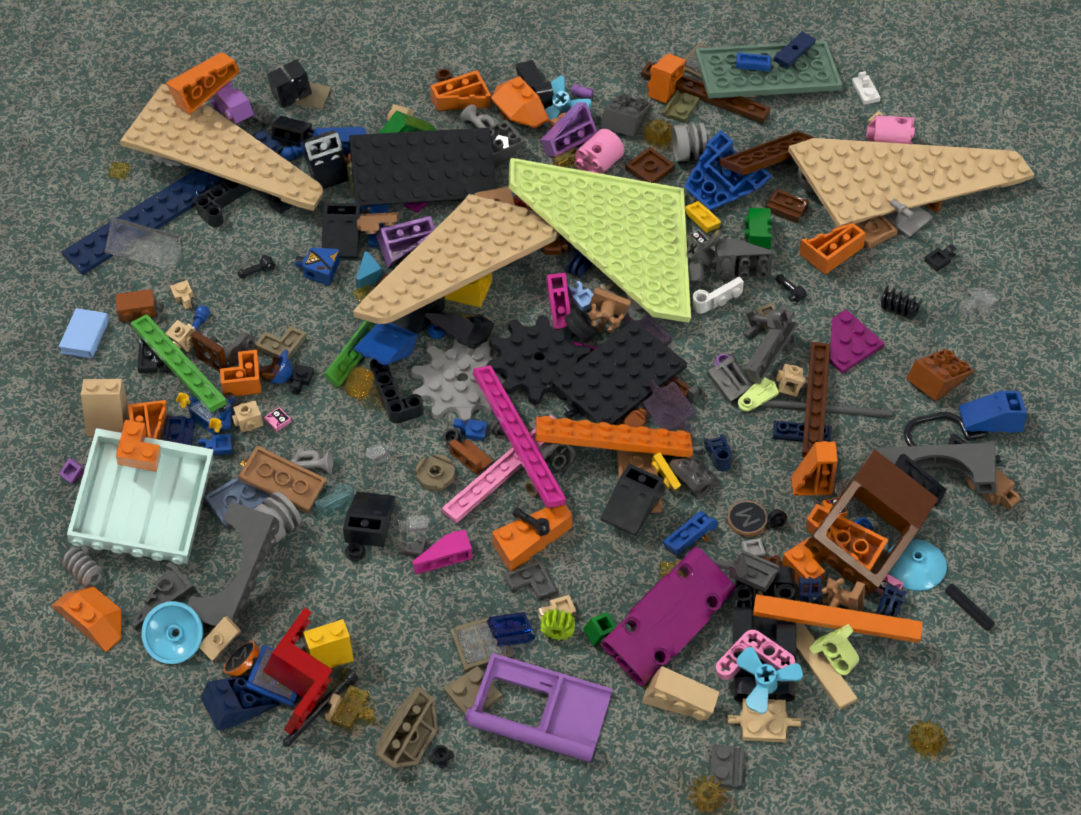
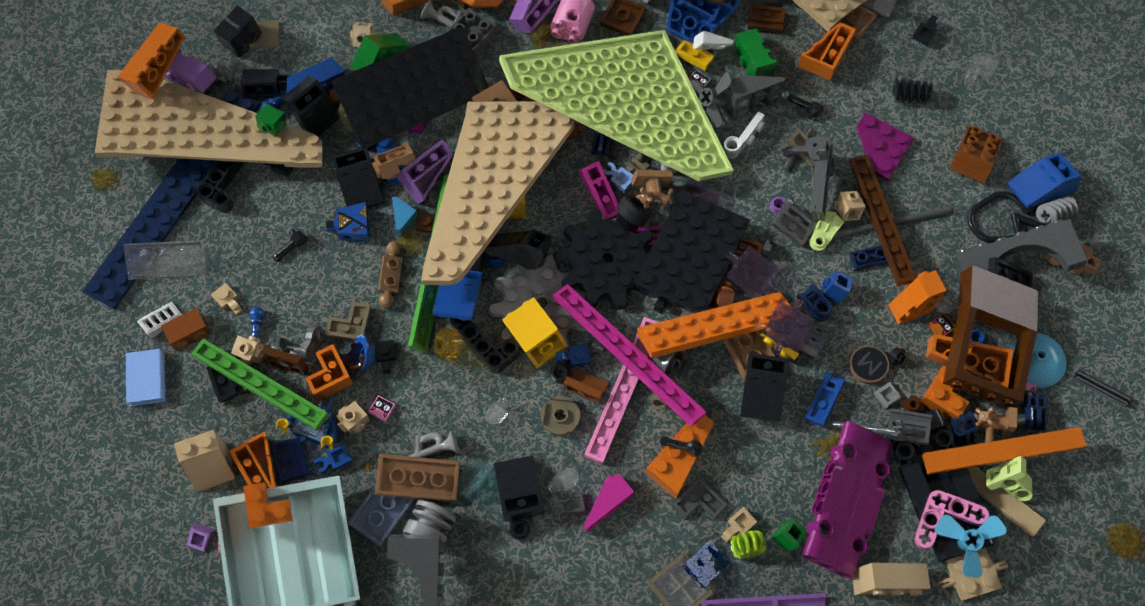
camera: 20 degrees left, 15 degrees up
(110, 289) = (156, 329): none -> white slope
(284, 158) = (270, 120): none -> green brick
(335, 315) = (390, 274): none -> medium nougat plate
(441, 395) = (535, 332): none -> yellow slope
(677, 454) = (788, 326): none -> clear purple plate
(721, 207) = (708, 40): none -> white slope
(744, 442) = (837, 286): none -> blue brick
(1004, 441) = (1062, 208): none -> light grey piece

